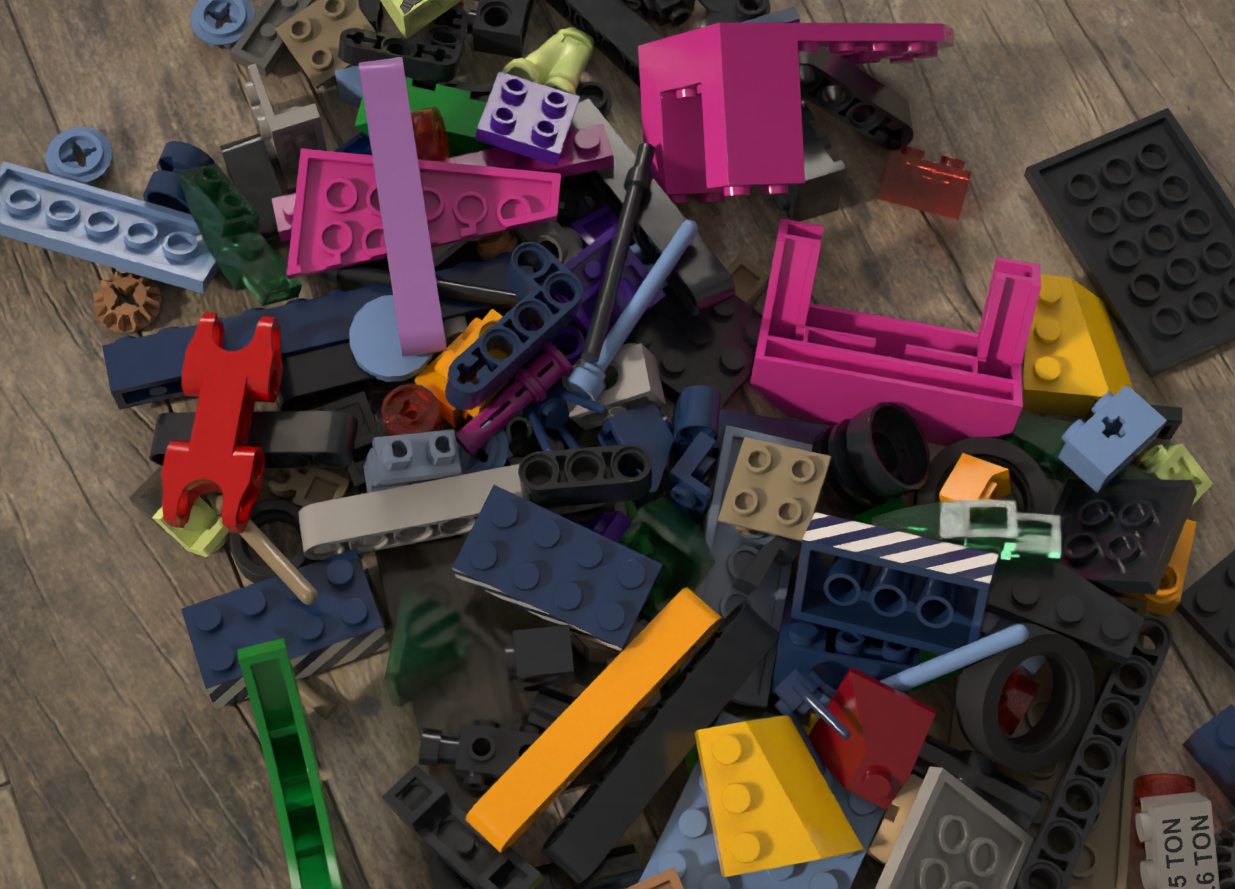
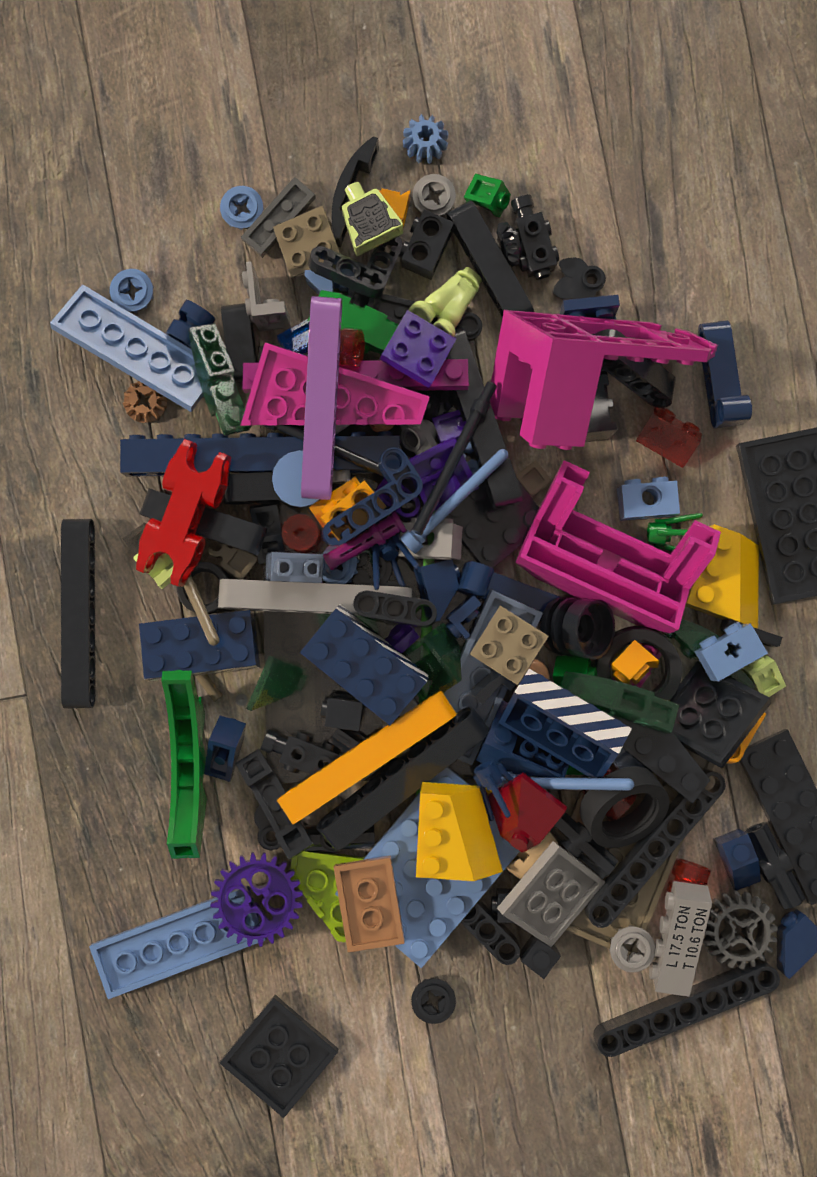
camera: 20 degrees right, 20 degrees up
(77, 632) = (78, 614): none -> black beam
(358, 783) = (224, 748): none -> dark blue slope
(905, 287) = (665, 499): none -> medium blue brick
(956, 310) = (660, 532): none -> green plant
(988, 115) = (721, 378): none -> dark blue beam

